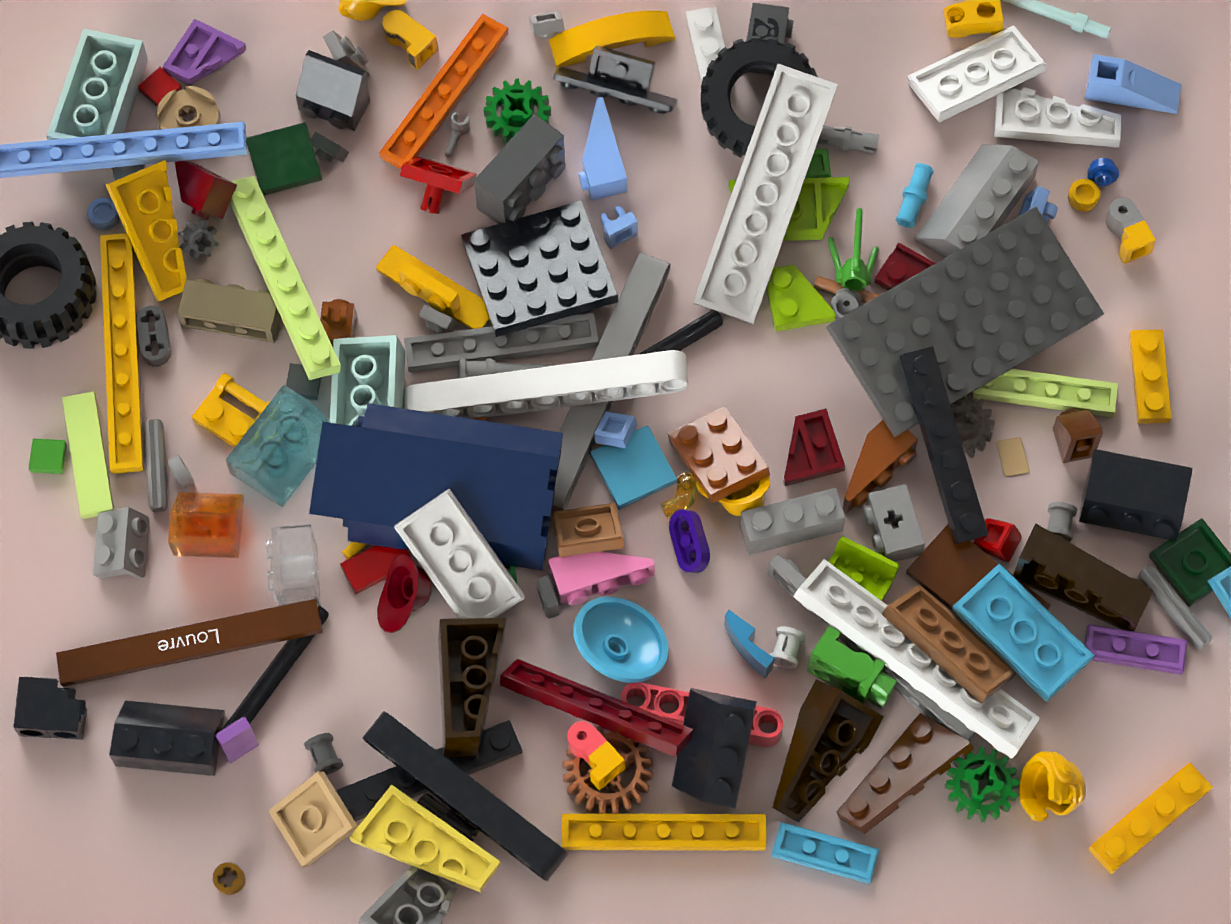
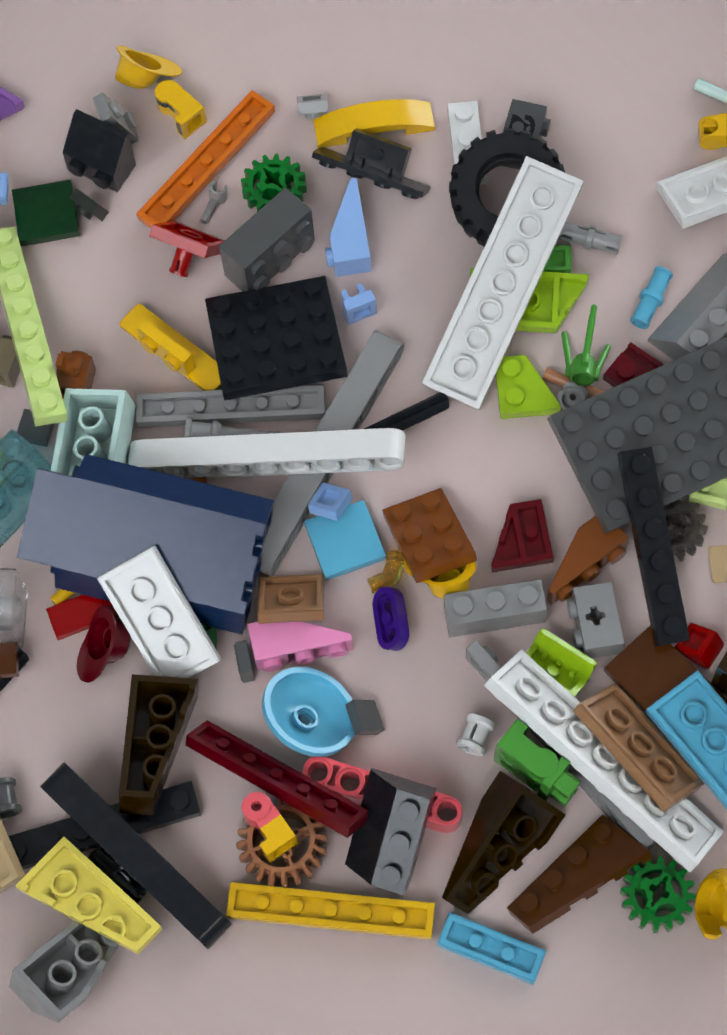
camera: 10 degrees right, 0 degrees up
(437, 321) = (171, 380): light grey plate -> none
(675, 640) = (364, 717): none -> dark grey tile
(742, 637) = (432, 720): dark azure slope -> none

